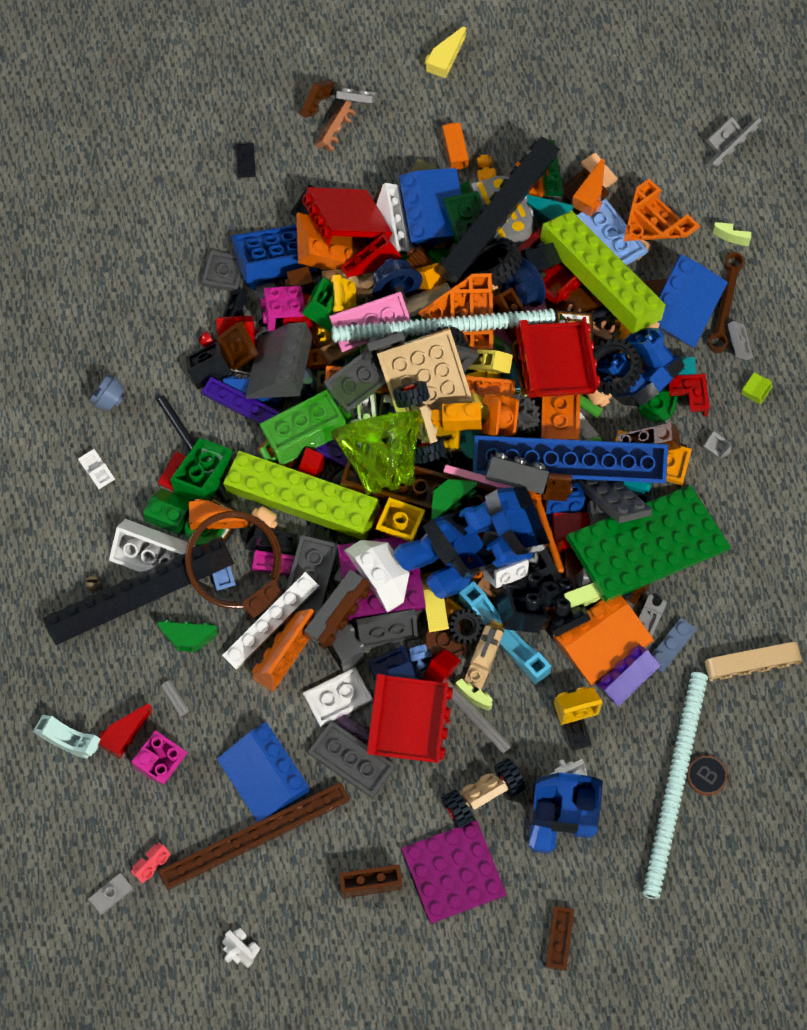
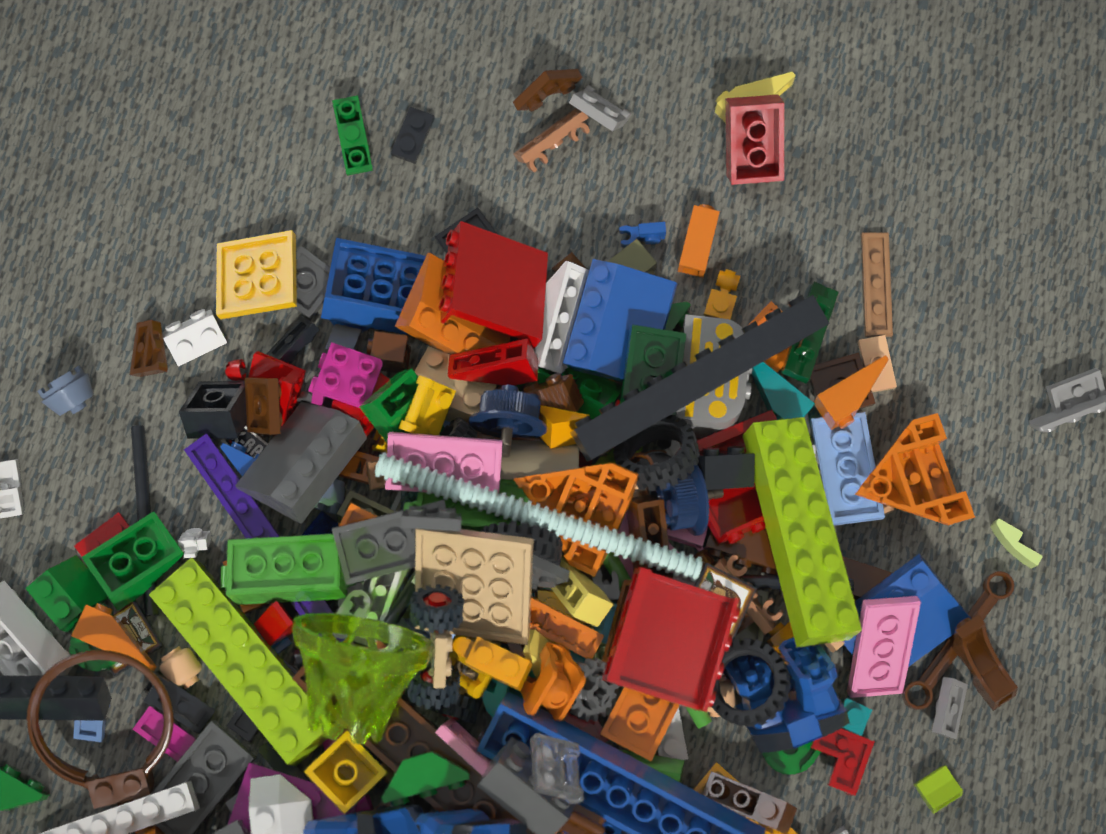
camera: 25 degrees right, 10 degrees up
(146, 350) = (148, 350): none -> reddish brown wing
(170, 331) = (193, 336): none -> white bracket
(192, 277) = (256, 275): none -> yellow plate
(209, 173) = (352, 135): none -> green slope
(234, 444) = (193, 541): none -> white plate
(423, 153) = (648, 232): none -> blue plate
(460, 72) = (754, 139): none -> red brick
(527, 449) = (549, 770): none -> clear plate
(575, 127) = (876, 284): none -> medium nougat tile
(683, 317) = (883, 646): none -> bright pink tile
(738, 299) = (977, 653): none -> reddish brown arch

